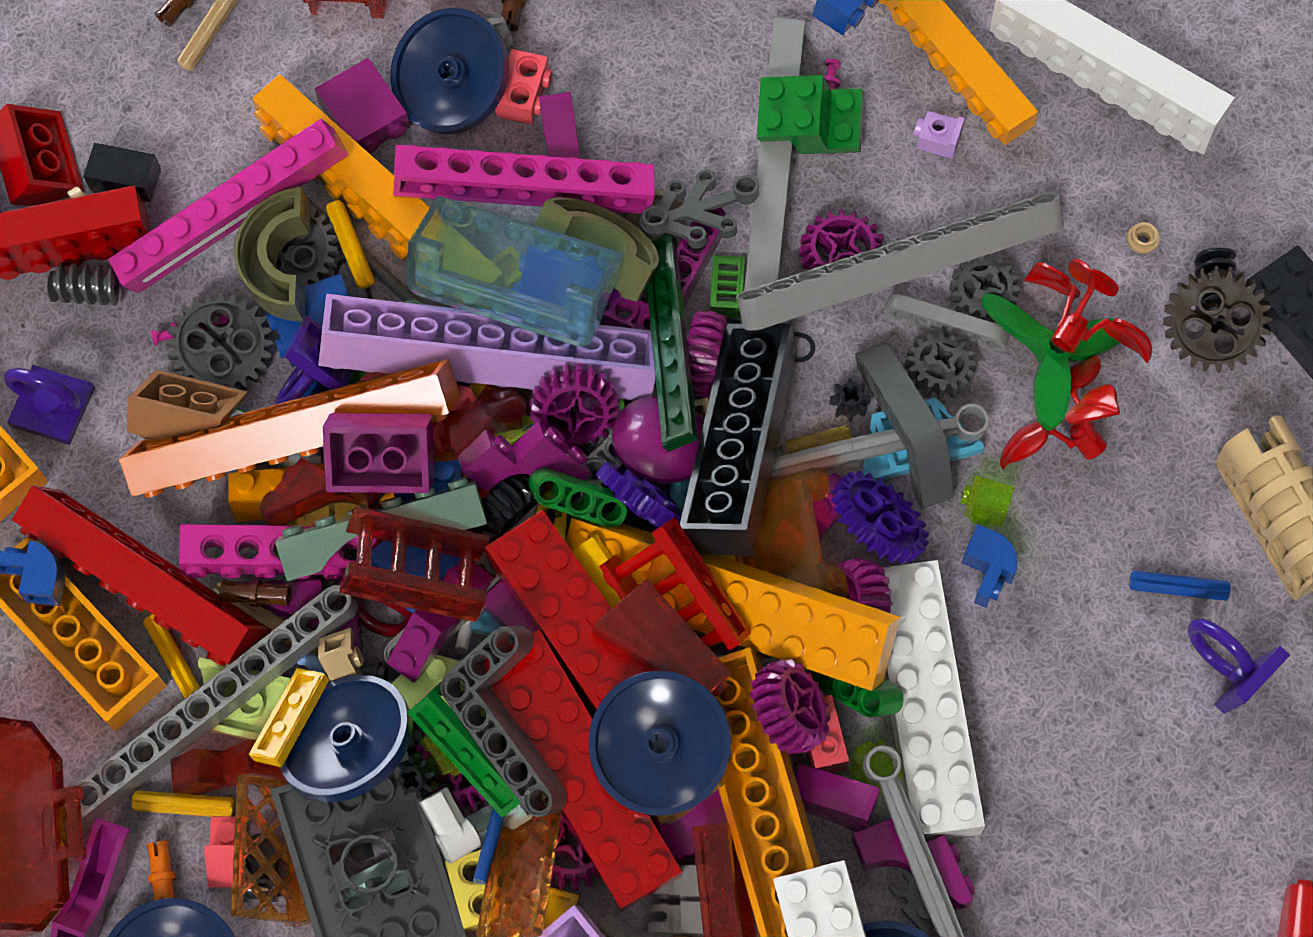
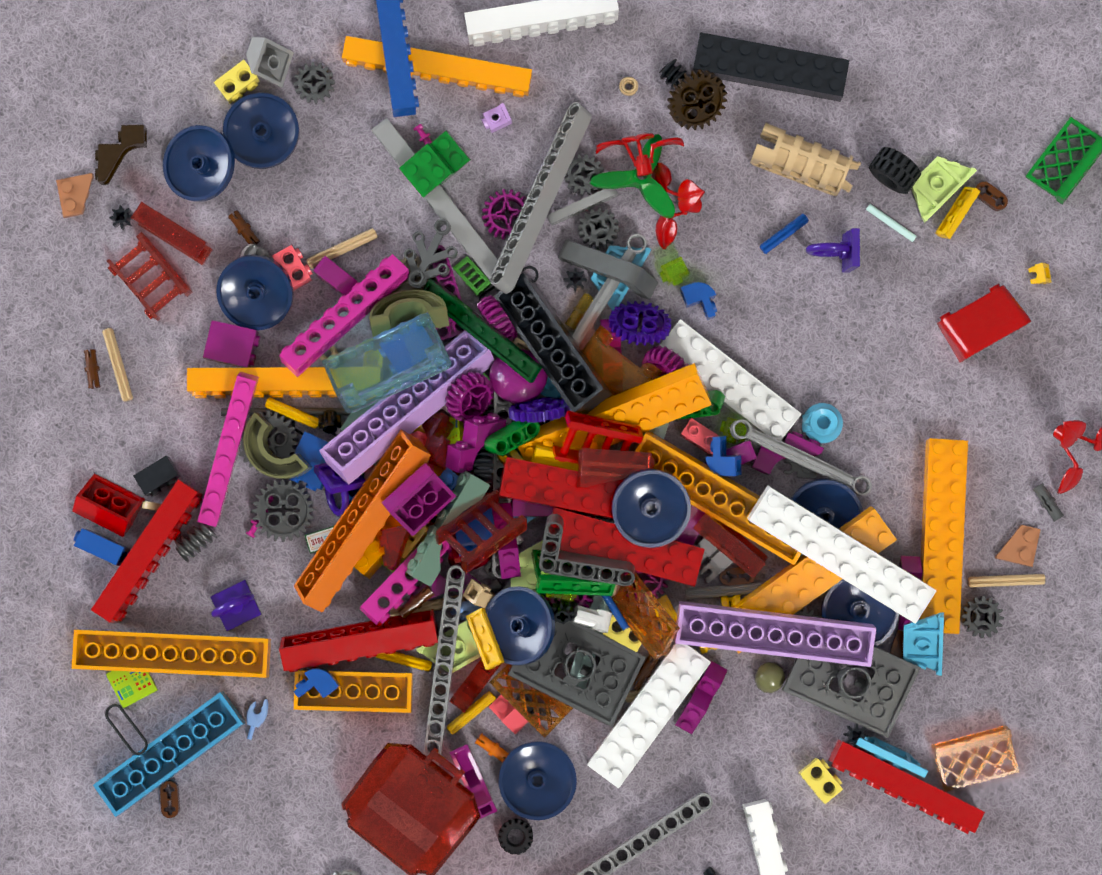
camera: 45 degrees left, 15 degrees up
(179, 405) = (300, 553): medium nougat slope -> none
(383, 288) = (329, 421): none -> black gear
(617, 122) = (343, 247): none -> tan axle
(790, 706) = (685, 442): magenta gear -> none
(814, 780) = (721, 462): none -> blue brick
(1003, 870) = (822, 423): none -> medium azure piece

